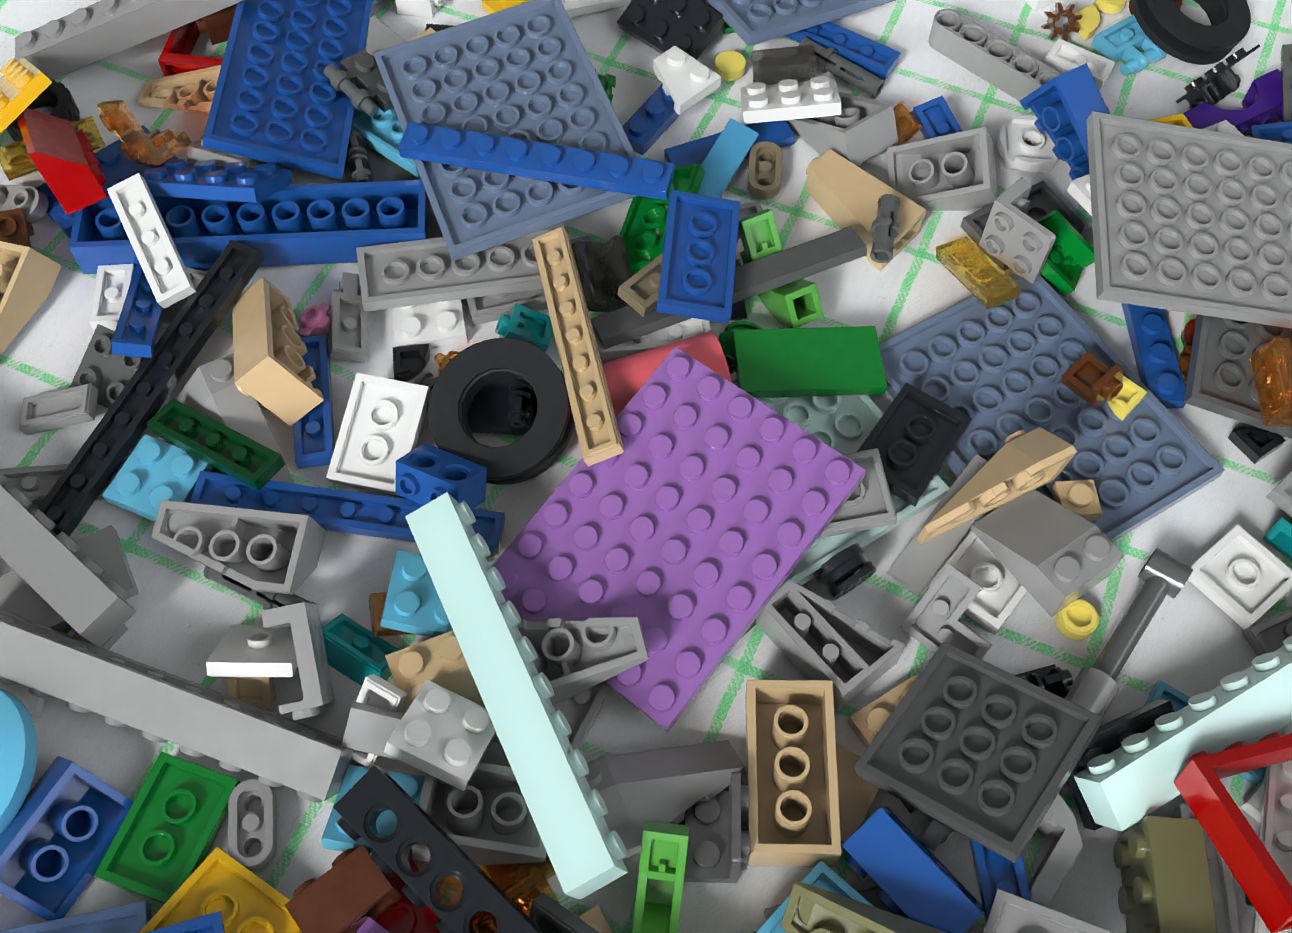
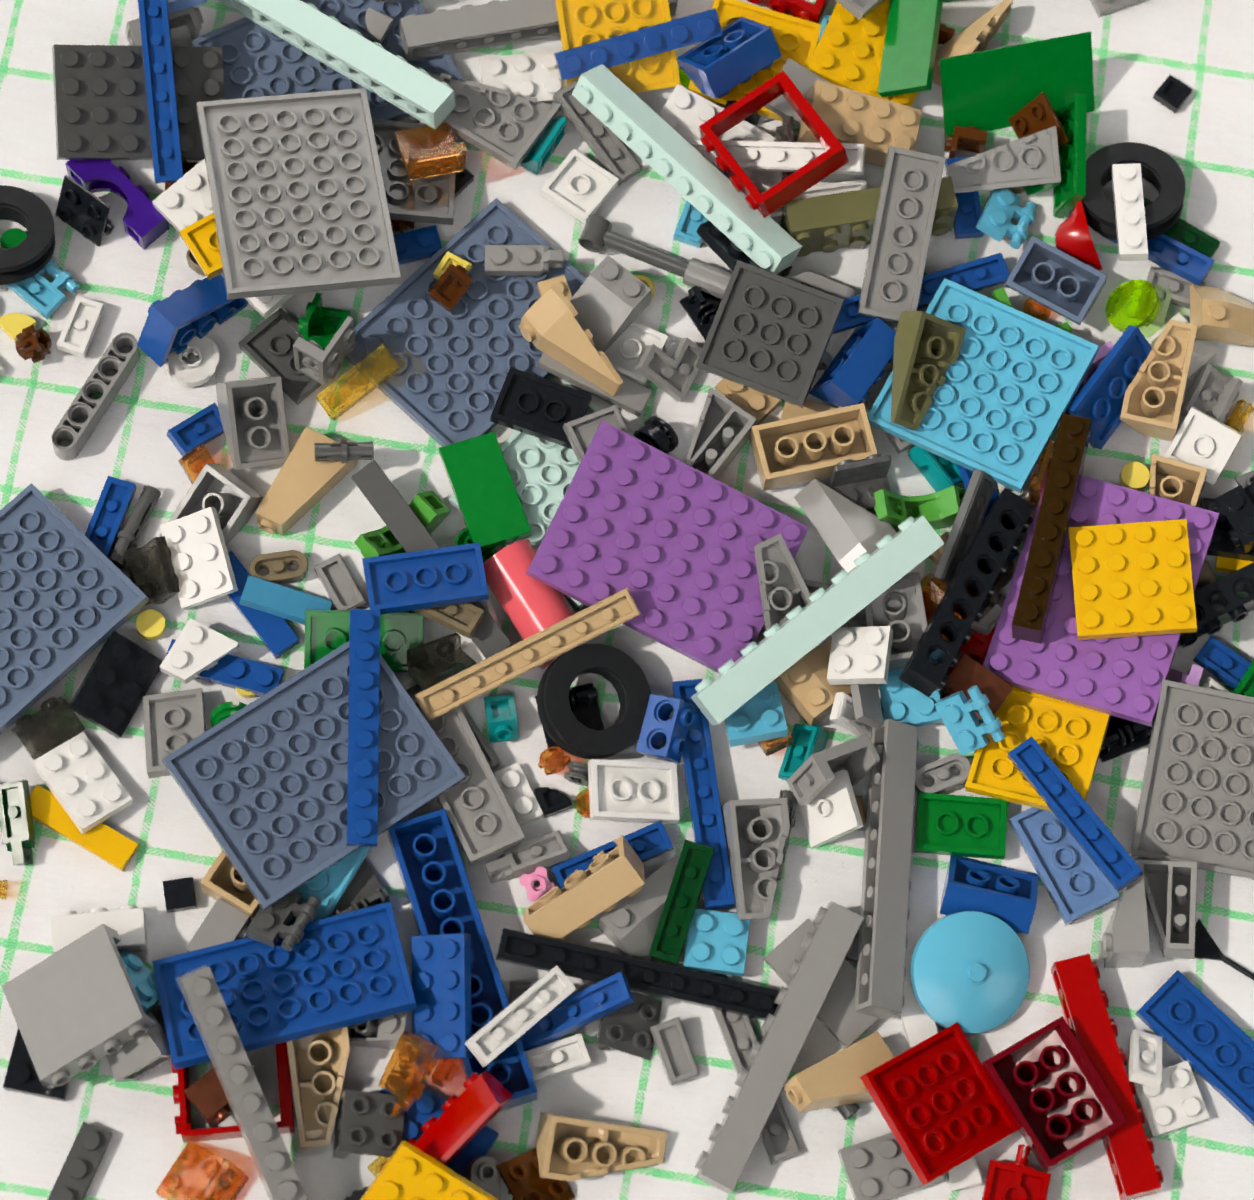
camera: 110 degrees left, 10 degrees up
(147, 108) = (366, 1125): none -> dark grey bracket
(295, 869) = (963, 723): none -> medium azure plate
(615, 52) = (169, 724): none -> light grey plate
(1129, 472) = (521, 260): none -> light grey hinge

